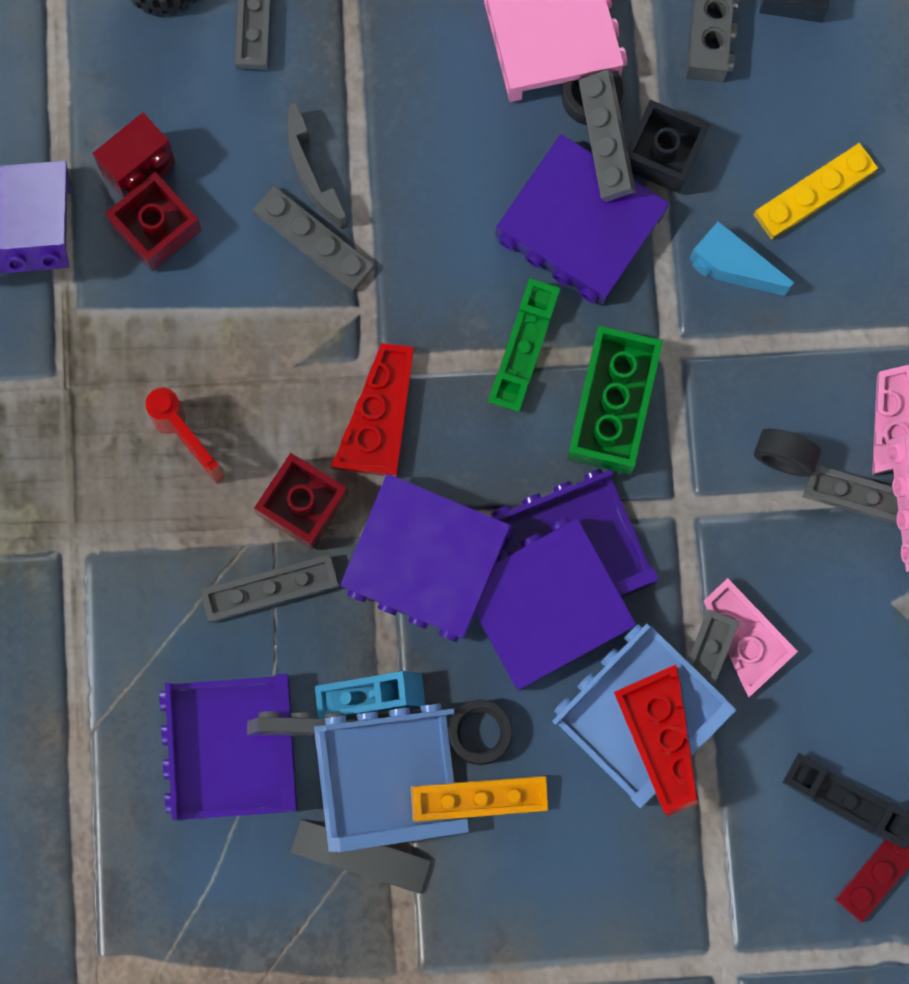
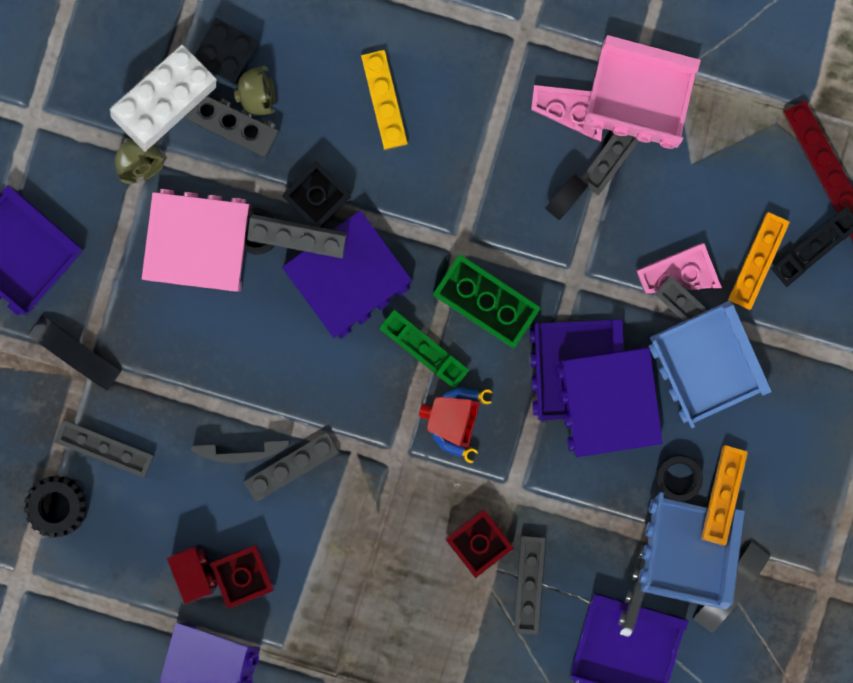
camera: 65 degrees left, 10 degrees up
(169, 418) = (384, 612): red piece -> none
(371, 694) = (628, 542): dark azure slope -> none
(376, 427) = (442, 471): red wing -> none
(425, 557) = (549, 472): dark purple panel -> none
(449, 413) = (453, 419): none -> red torso
(660, 731) = (728, 360): red wing -> none
(733, 261) = (414, 180): dark azure slope -> none
(765, 30) = (256, 91): none -> olive cylinder
(802, 733) = (758, 261): none -> light orange plate

